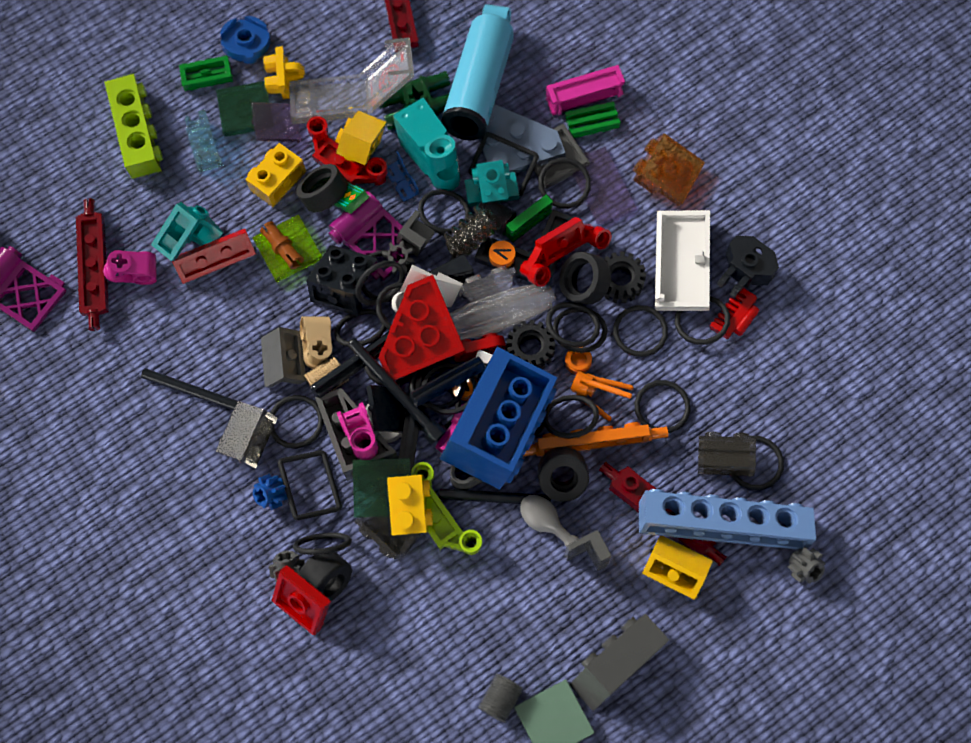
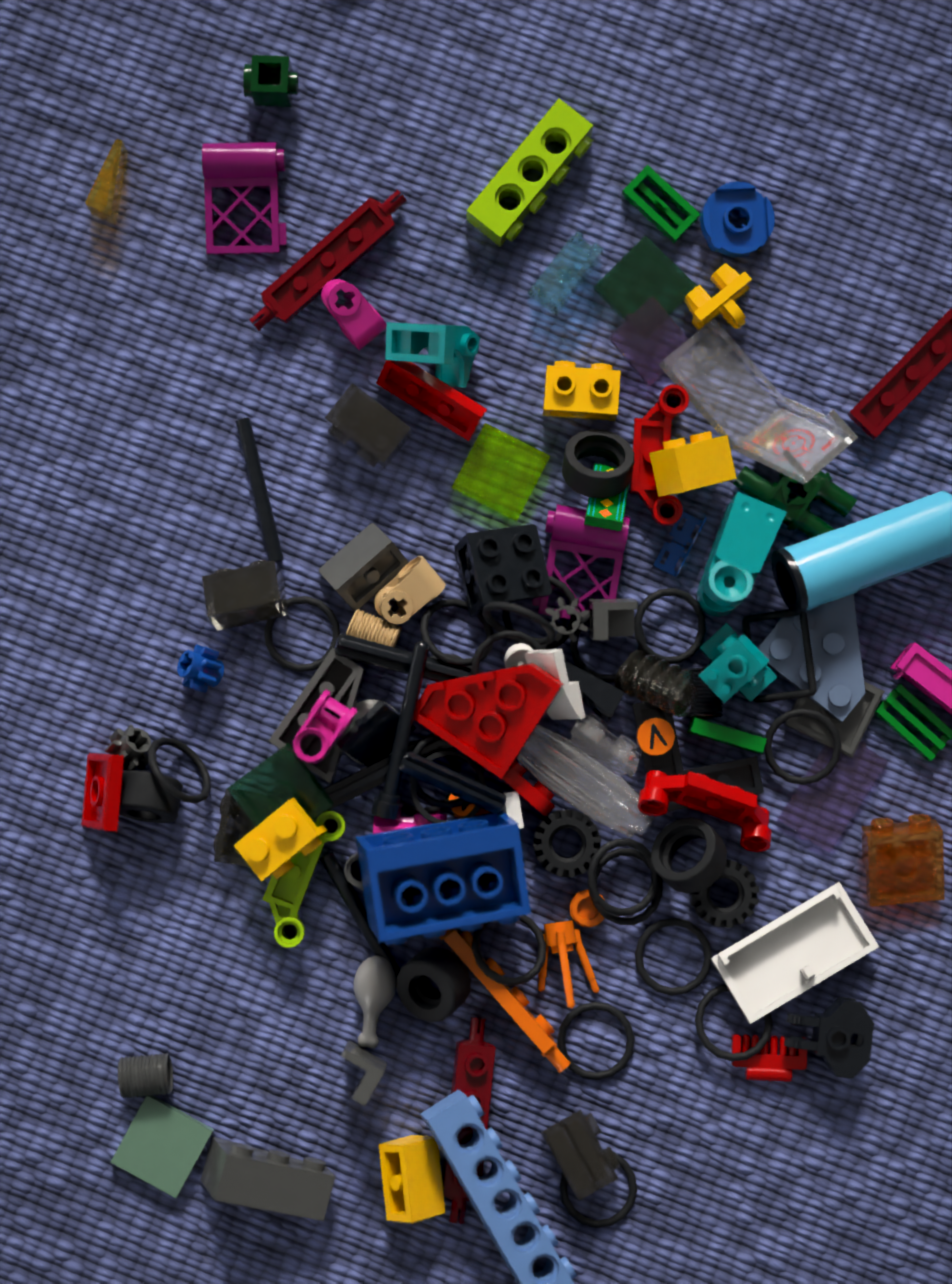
camera: 50 degrees right, 15 degrees up
(202, 300) = (367, 426): none -> clear smoke brick
(281, 245) = (494, 468): dark orange pin -> none
(288, 491) = (214, 687): black piece -> none

